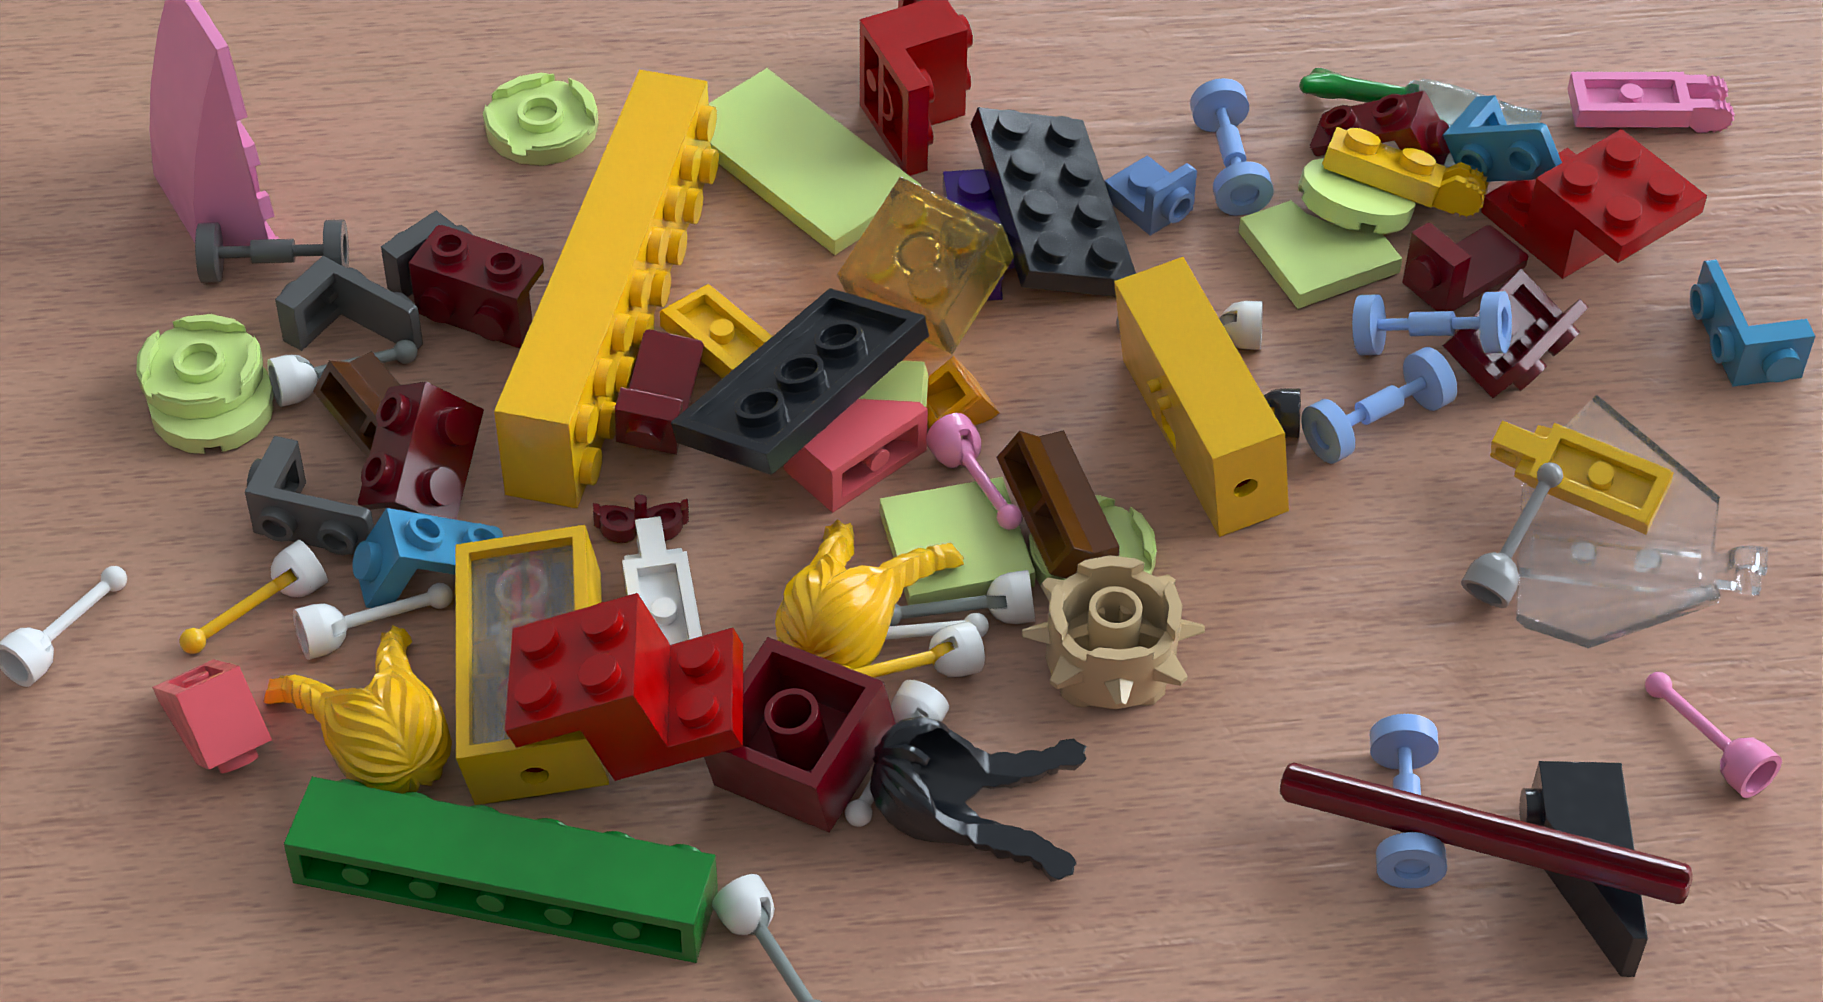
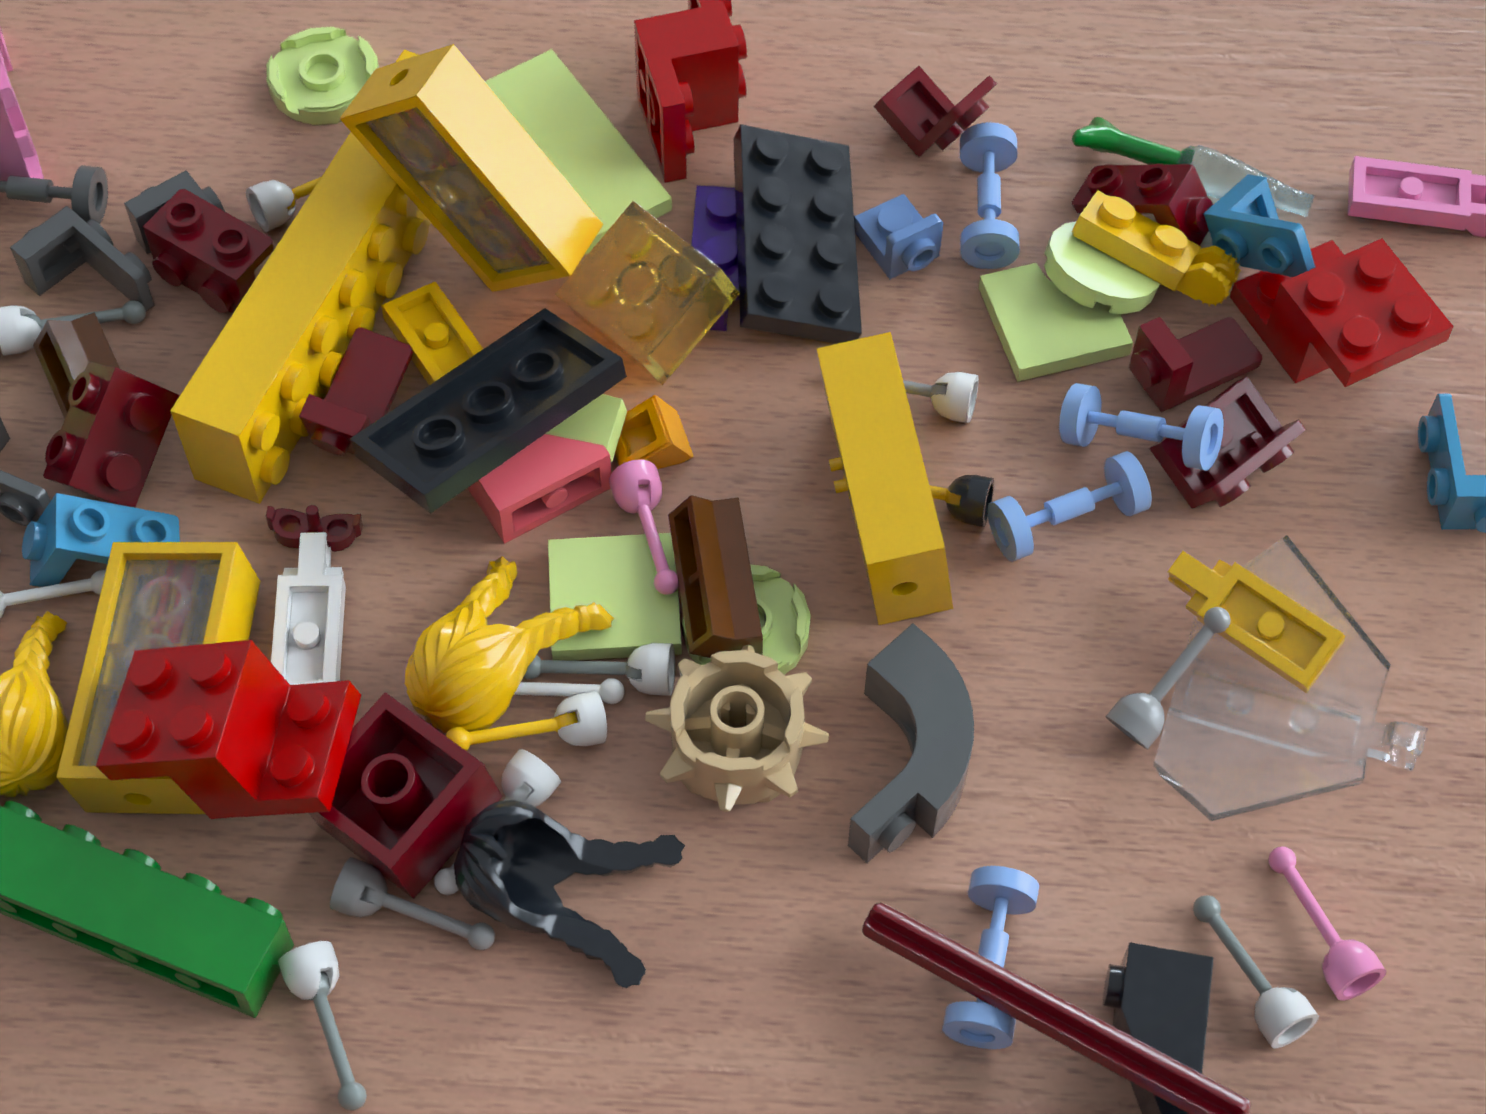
camera: 10 degrees right, 10 degrees up
(527, 232) = (275, 202): none -> white hinge
(740, 164) = (472, 169): none -> yellow brick
(780, 831) = (363, 891): none -> light grey hinge
(1151, 85) = (926, 115): none -> dark red bracket
(1302, 604) = (933, 708): none -> dark grey arch
(1691, 810) = (1279, 1012): none -> white hinge

